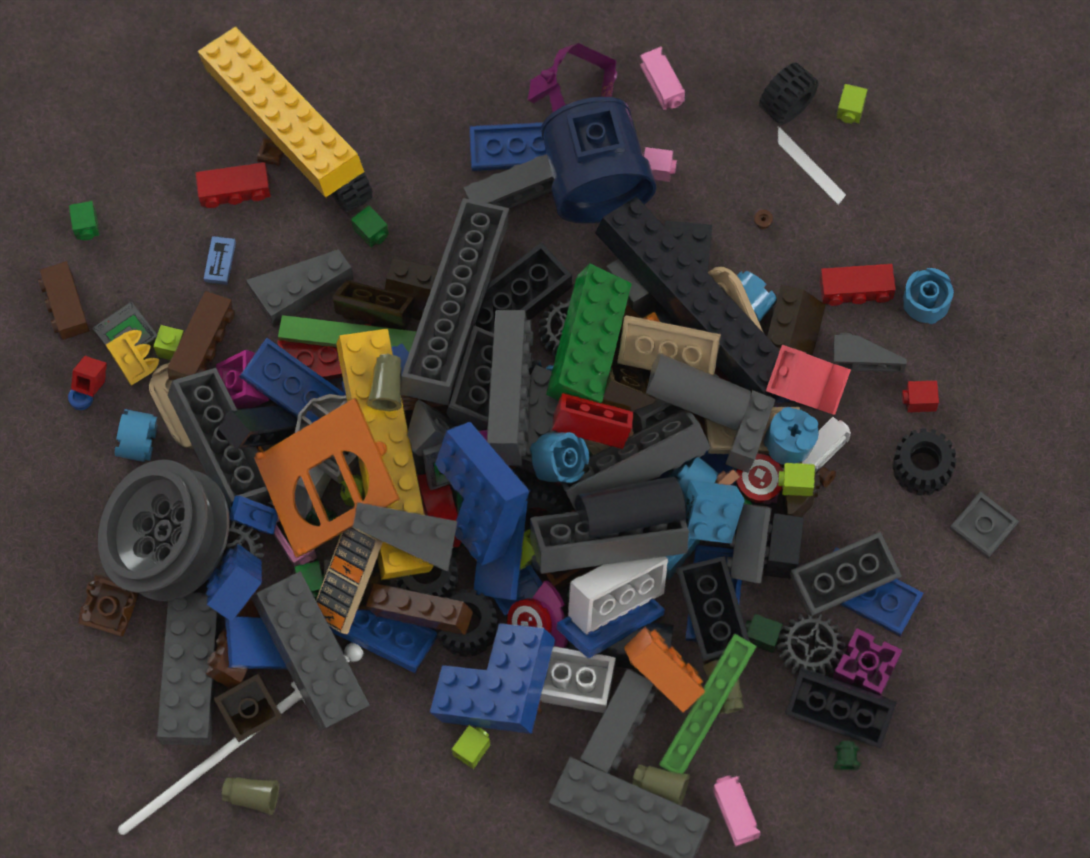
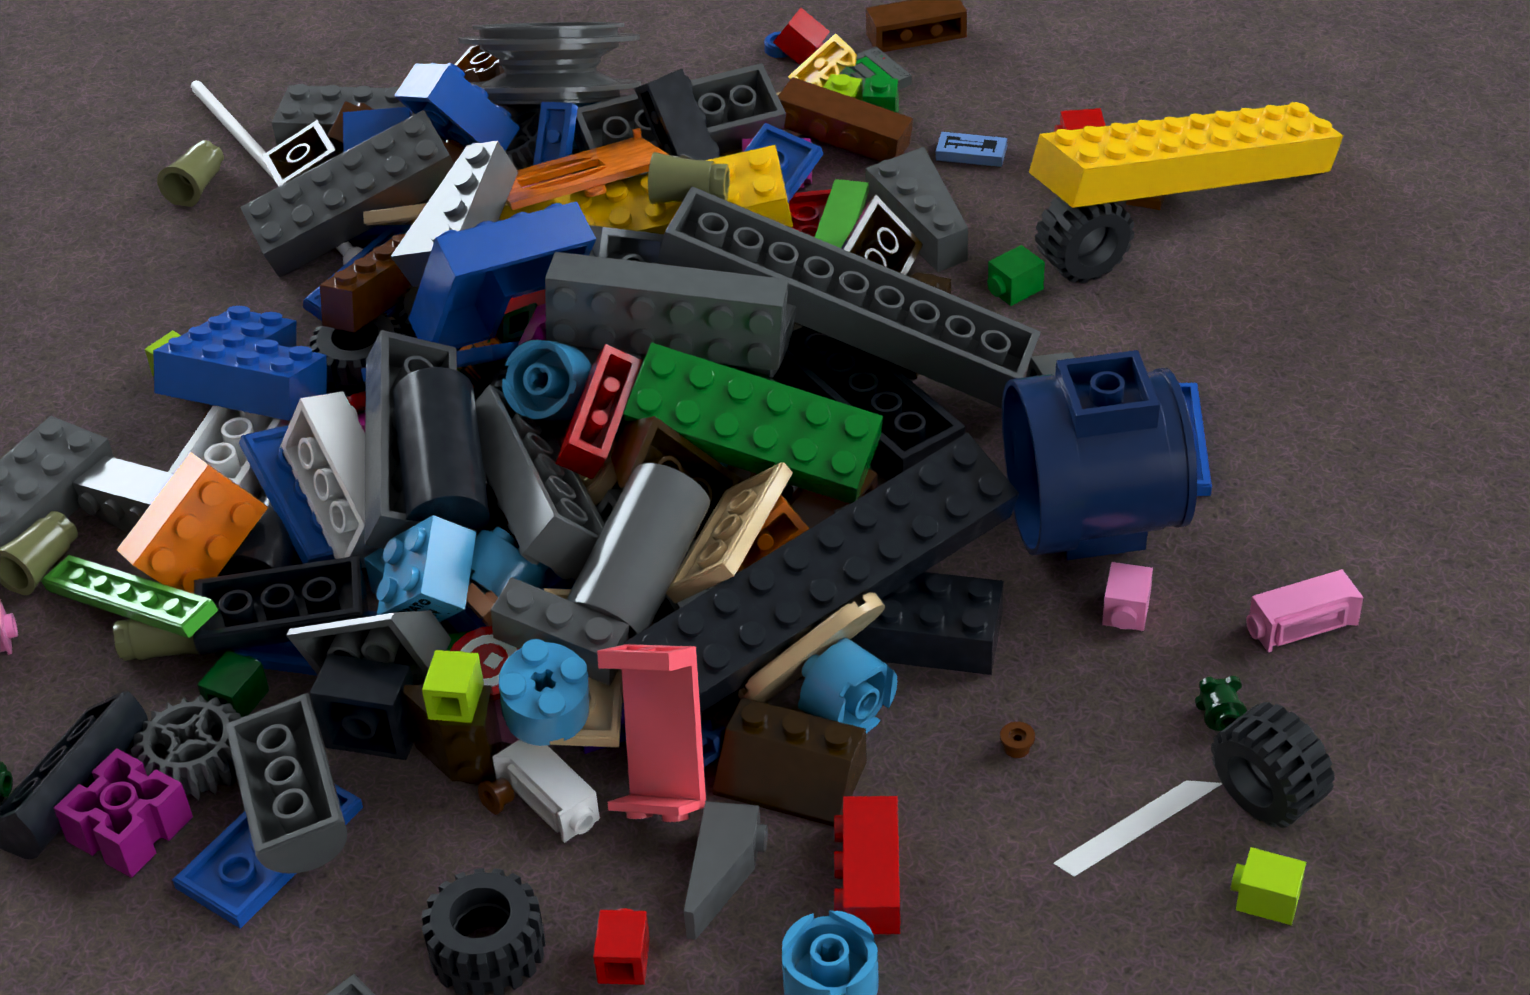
camera: 95 degrees right, 25 degrees down
(84, 220) = (1033, 34): green brick -> none
(135, 435) = (708, 55): dark azure brick -> none
(173, 315) = (882, 92): none -> green brick
(547, 83) = (1271, 446): magenta piece -> none
(734, 120) = (1220, 701): none -> dark green brick

